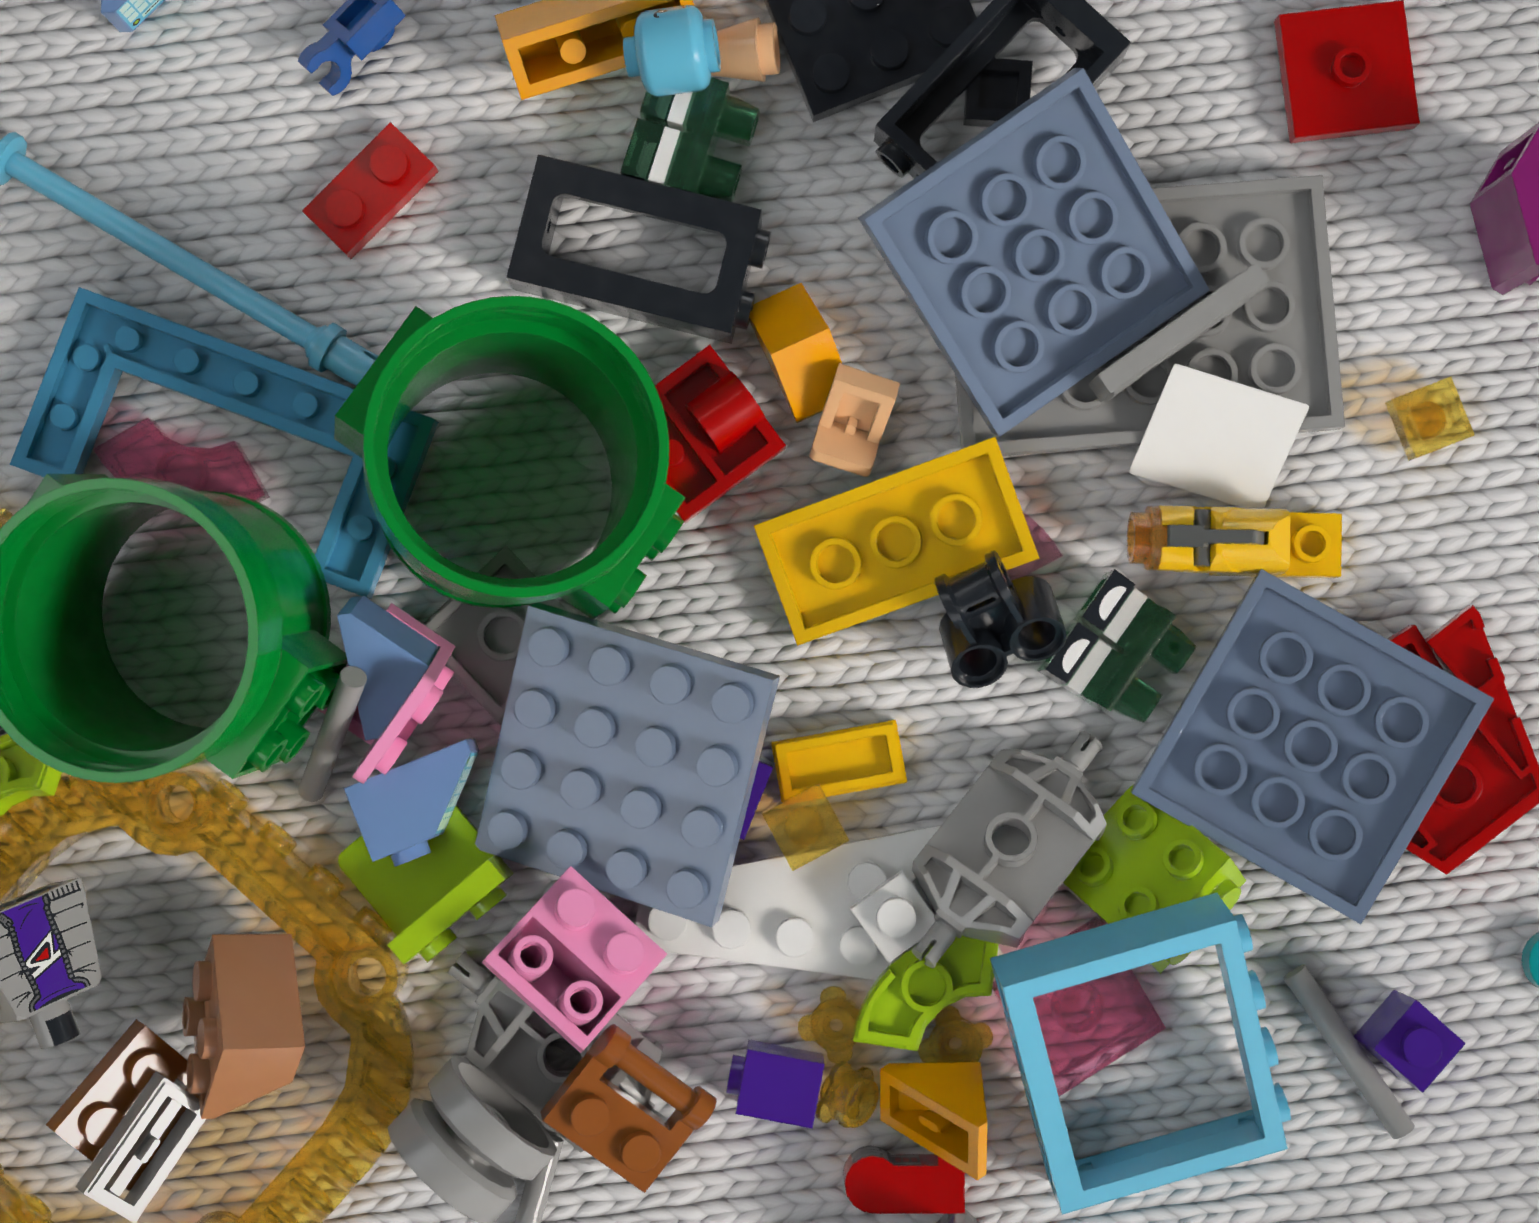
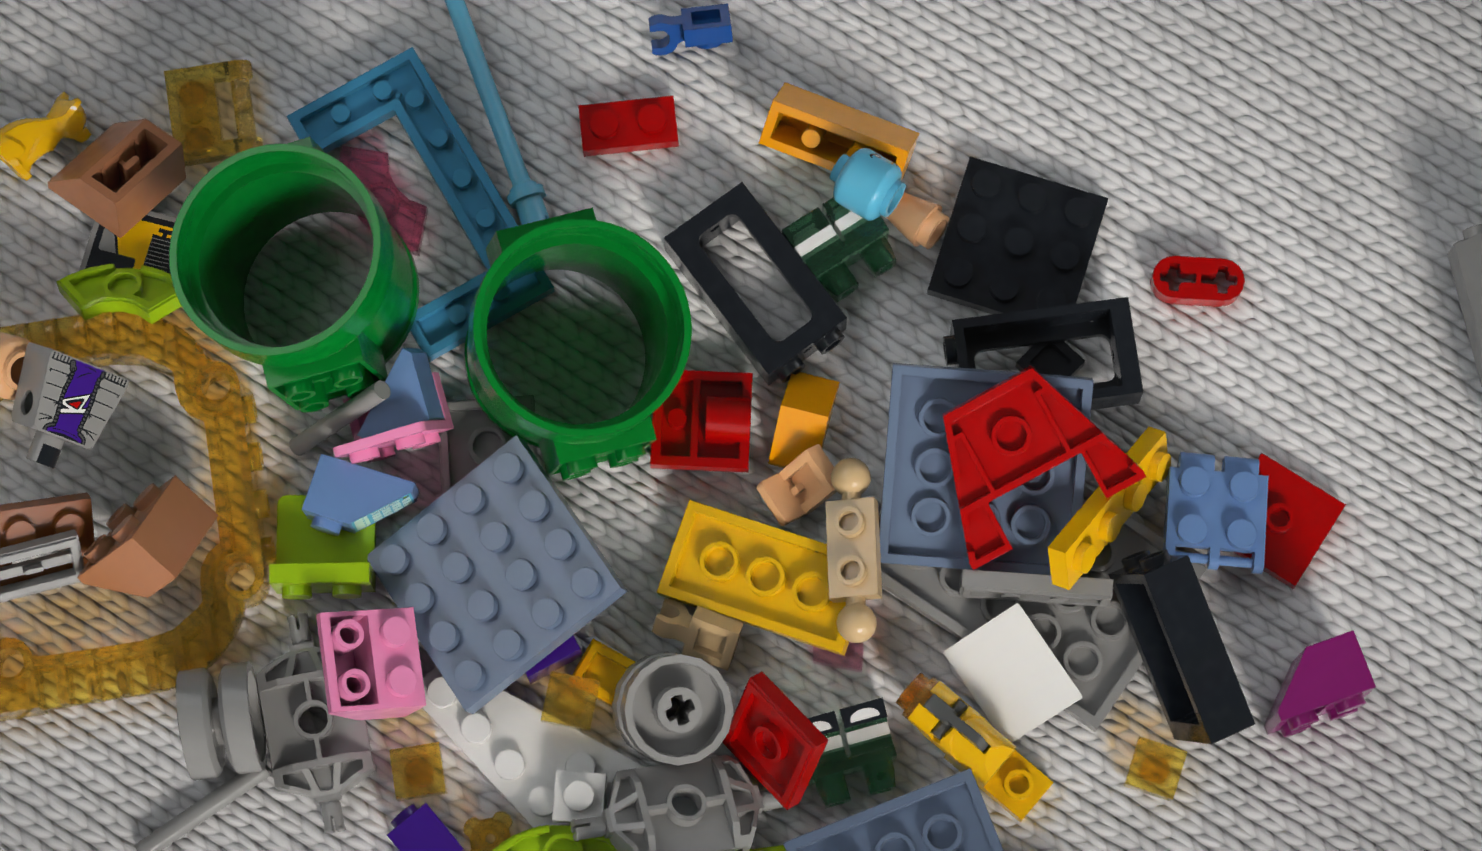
camera: 40 degrees right, 10 degrees down
(616, 1125) = (310, 781): dark orange plate -> none
(709, 1018) = (418, 771): none -> clear yellow plate
(881, 650) = (704, 634): none -> tan plate
(916, 751) = (701, 714): none -> light grey wheel
(969, 444) = (853, 550): none -> tan plate
(996, 618) = (788, 659): black piece -> none
(1045, 700) = (775, 740): none -> red plate
(1048, 198) = (1013, 437): none -> red wing
(1192, 204) = (1102, 518): none -> yellow plate
(1288, 110) = (1217, 510): none -> medium blue plate
(1379, 275) = (1181, 647): none -> black piece

